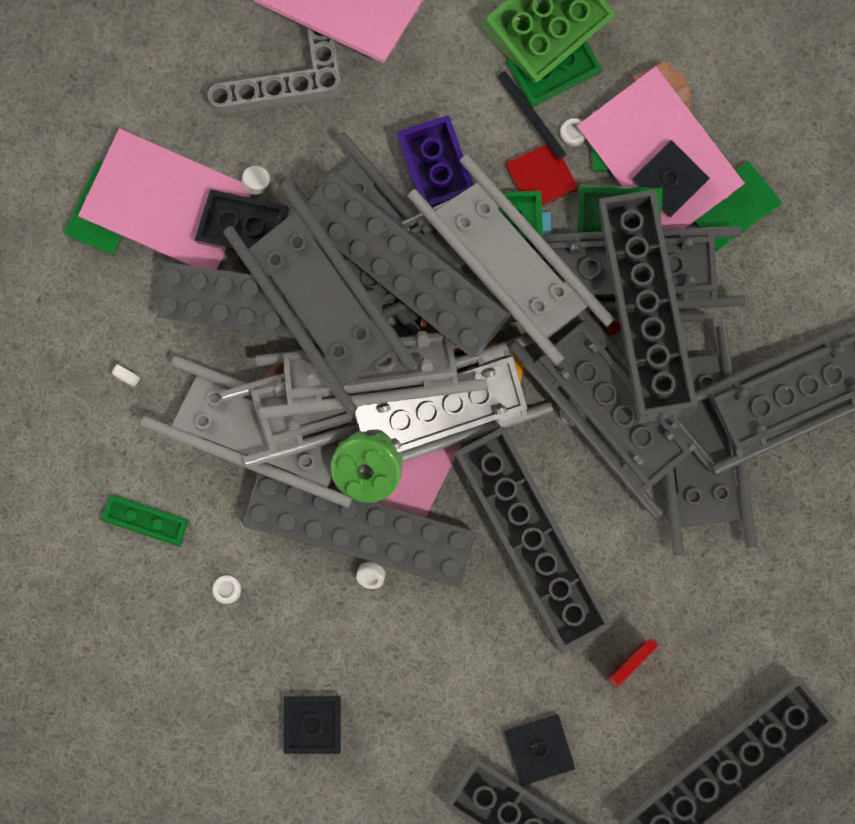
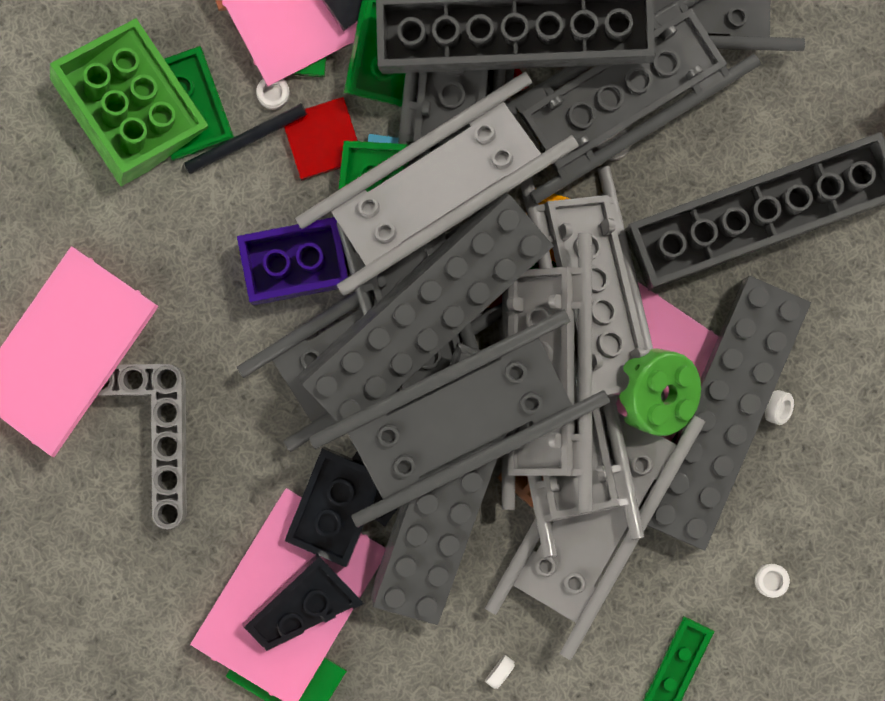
camera: 85 degrees left, 5 degrees up
(164, 212) = (302, 602): none -> black wing
(255, 180) = (277, 484): white tile -> none

